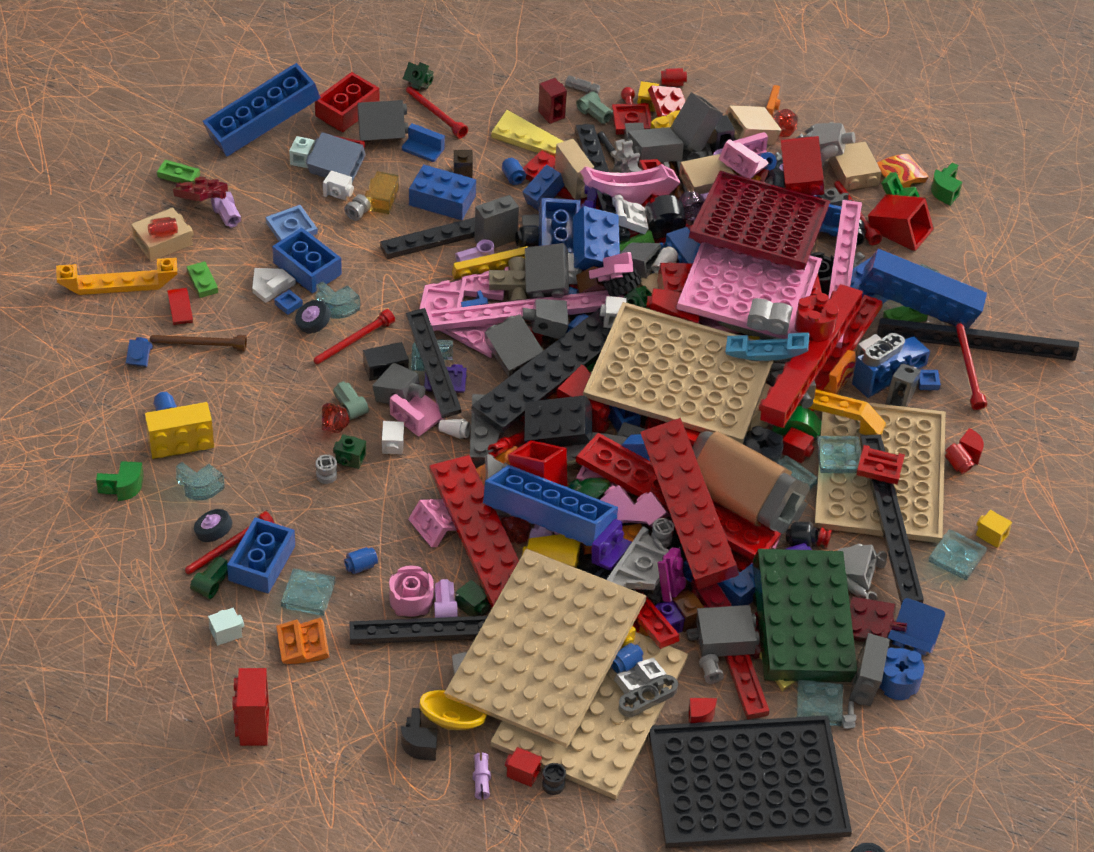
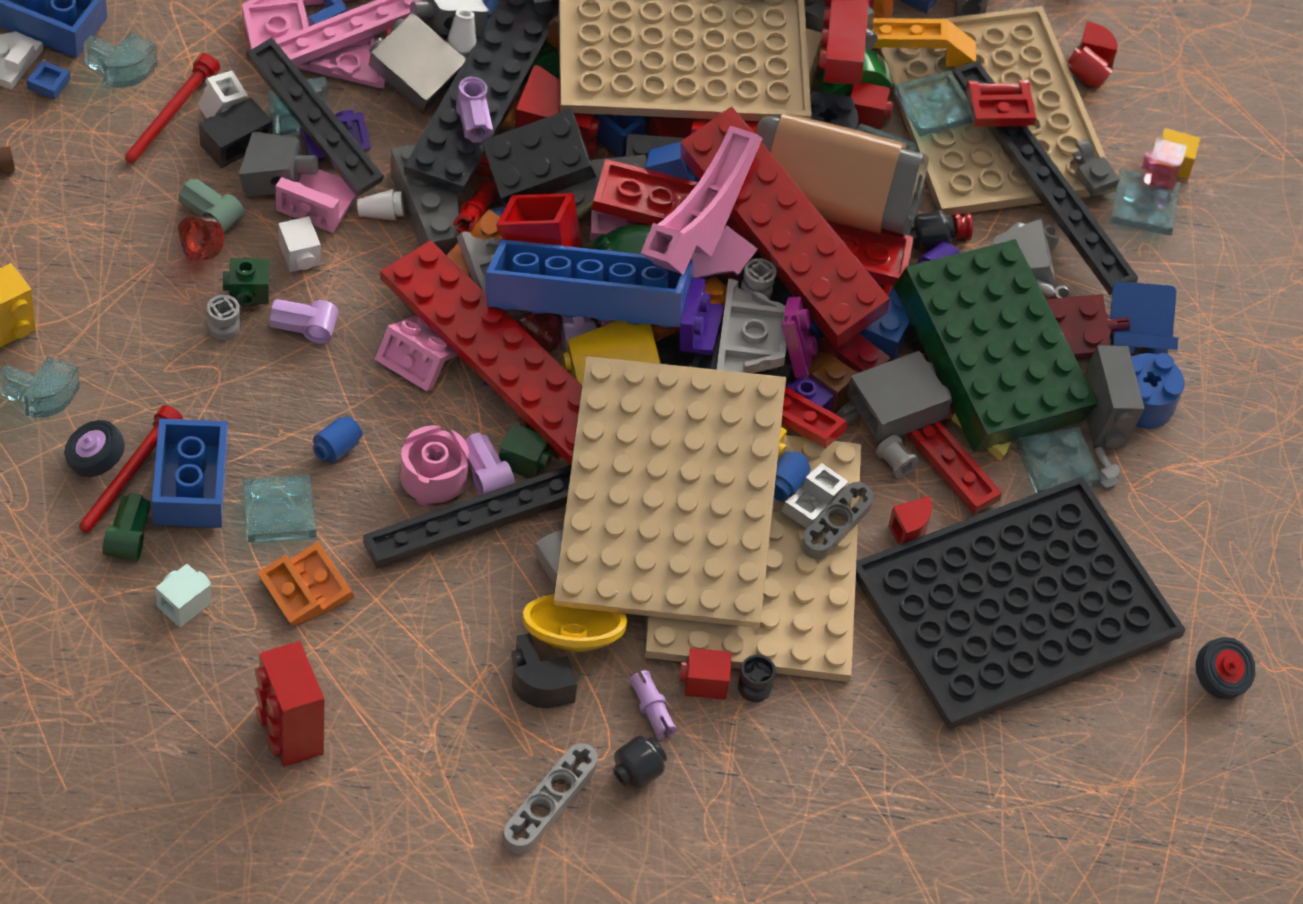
camera: 25 degrees left, 5 degrees up
(312, 316) = (97, 92): black wheel -> none
(380, 486) = (312, 320): none -> lavender piece
(385, 334) = (221, 94): none -> white brick
(389, 810) = (547, 796): none -> light grey beam
(454, 807) = (639, 762): none -> black head
(528, 381) = (474, 109): none -> lavender piece
(547, 334) = (462, 33): none -> white cone
(635, 478) = (704, 213): none -> bright pink arch
(928, 526) = (1094, 173): none -> dark grey plate
(978, 532) = (1163, 163): none -> clear pink brick

